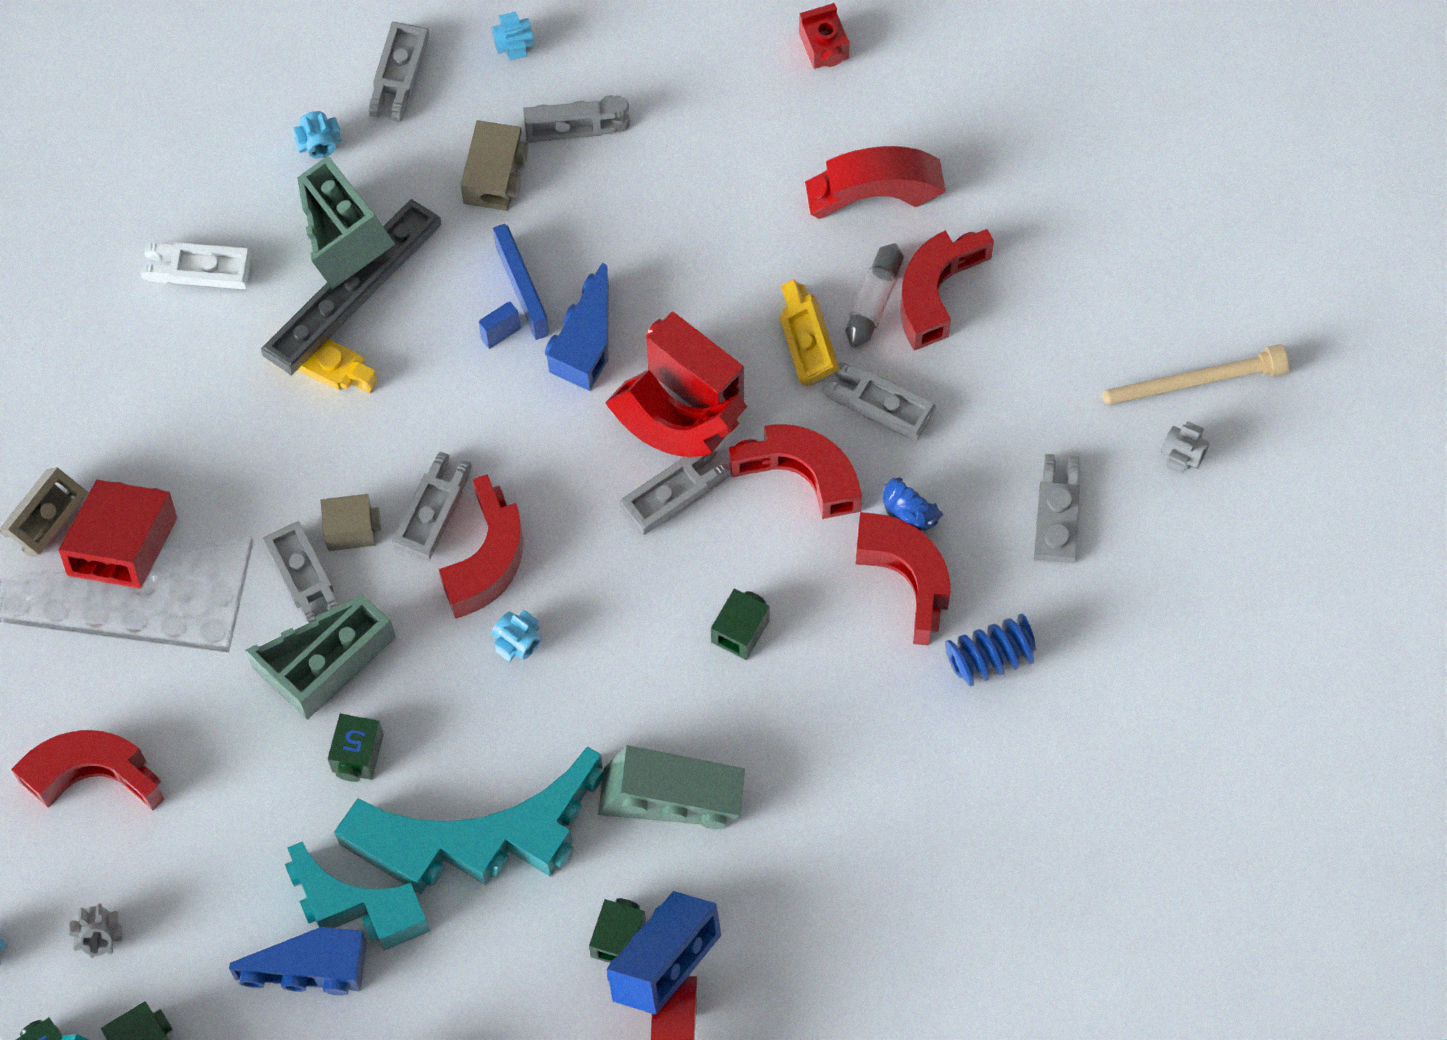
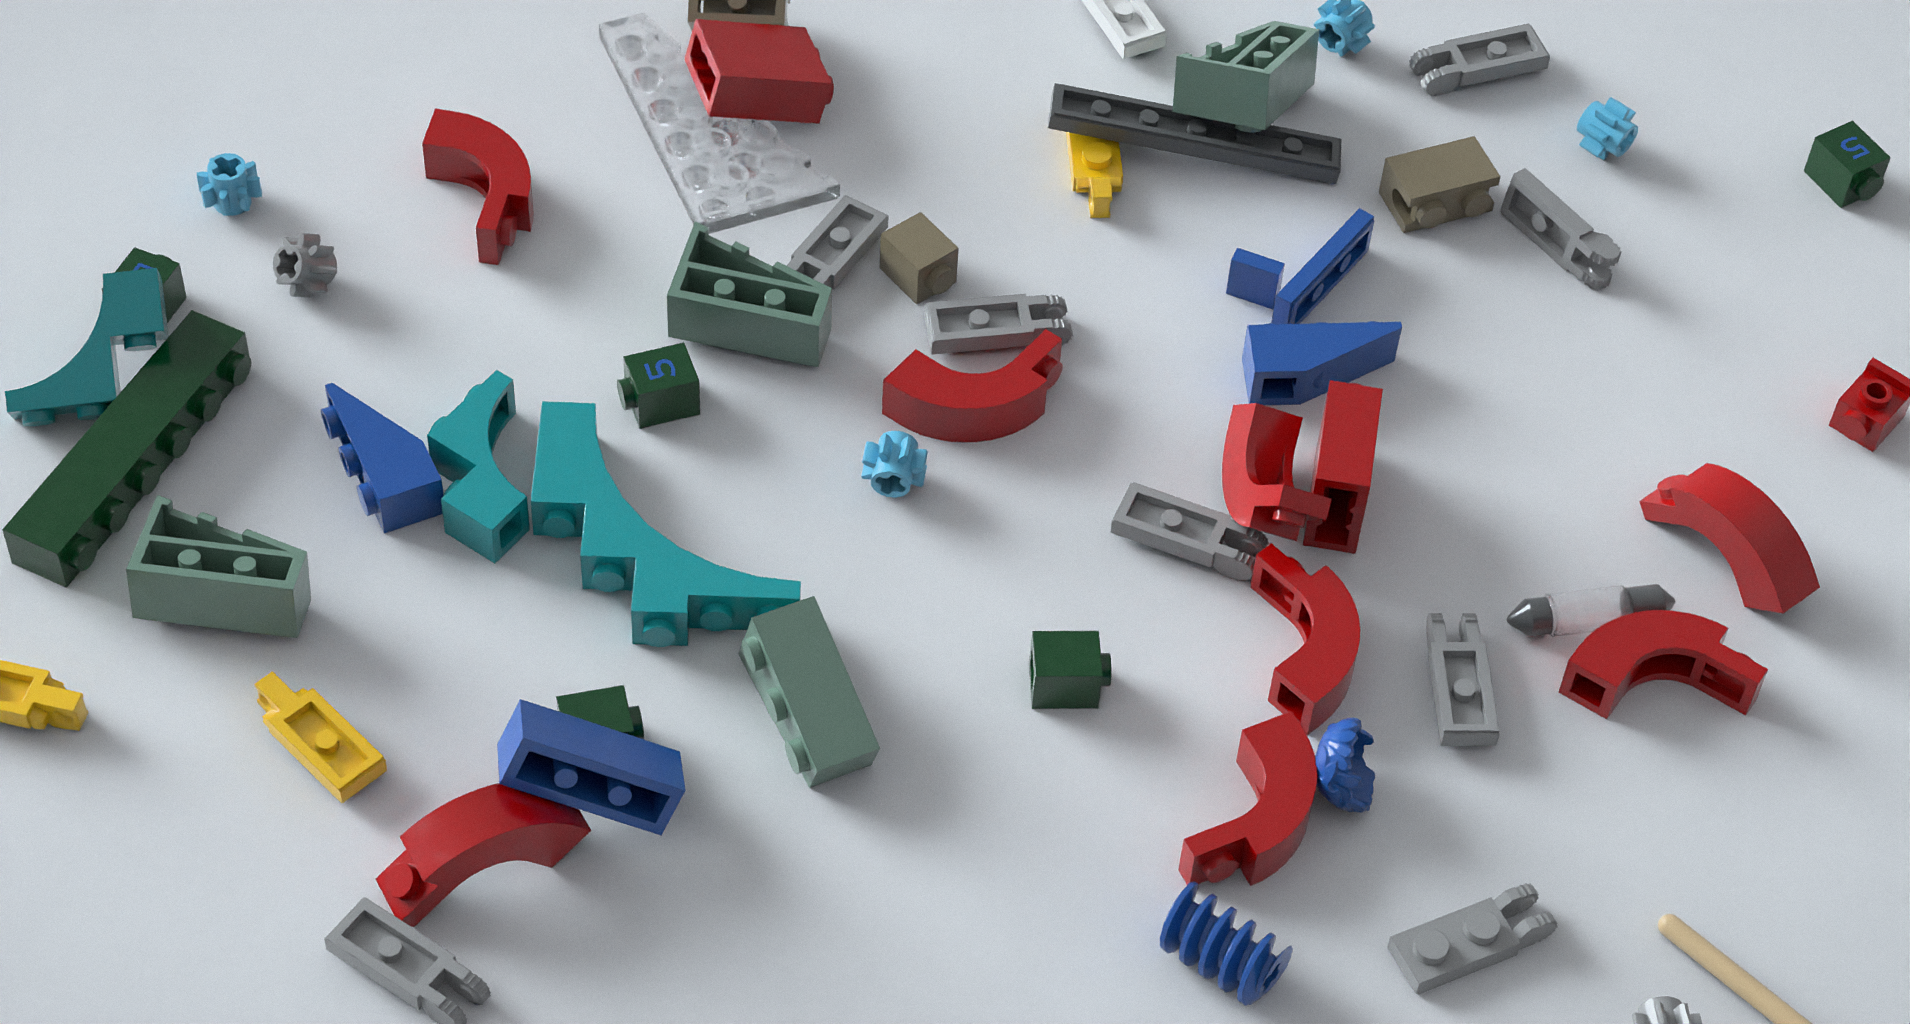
camera: 55 degrees right, 15 degrees down
(807, 334) = (1482, 564): yellow hinge -> none

